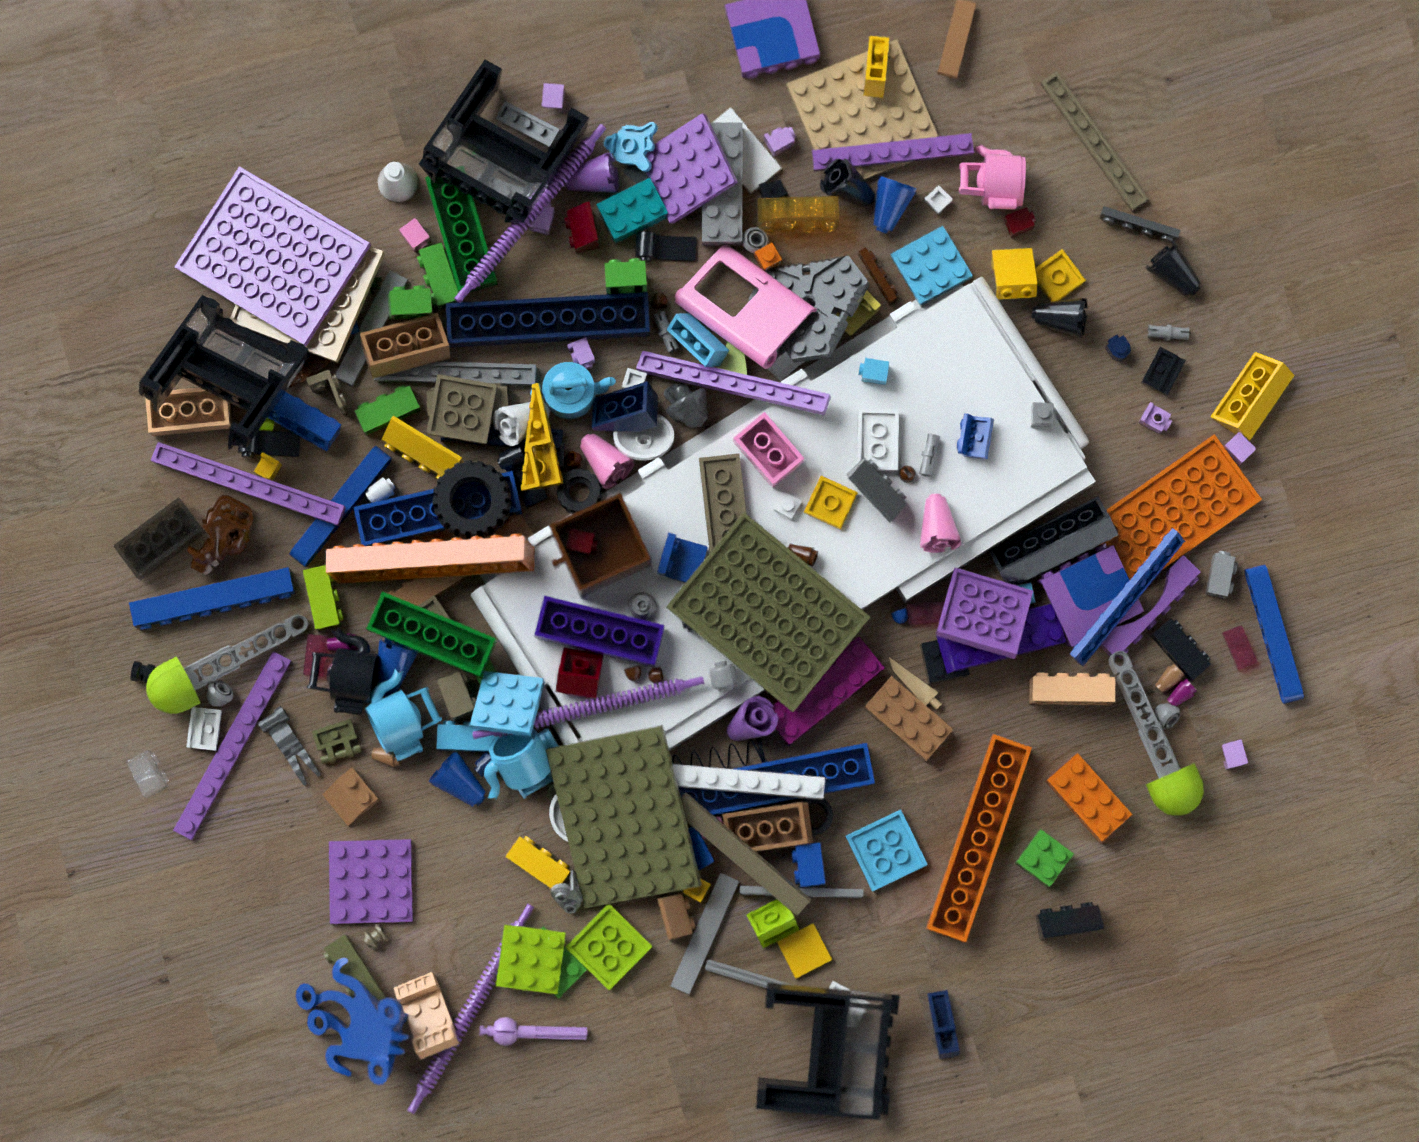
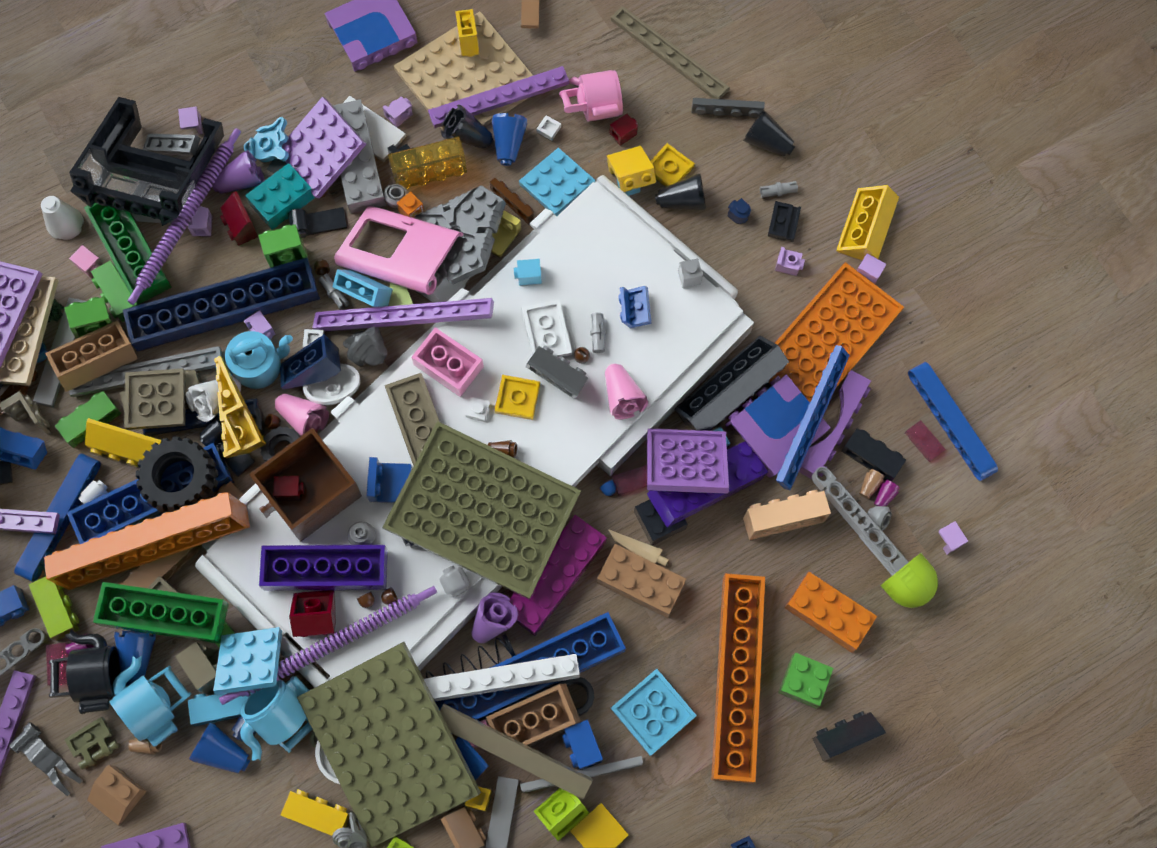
camera: 15 degrees left, 10 degrees down
(1220, 575) = (888, 381): light grey brick -> none

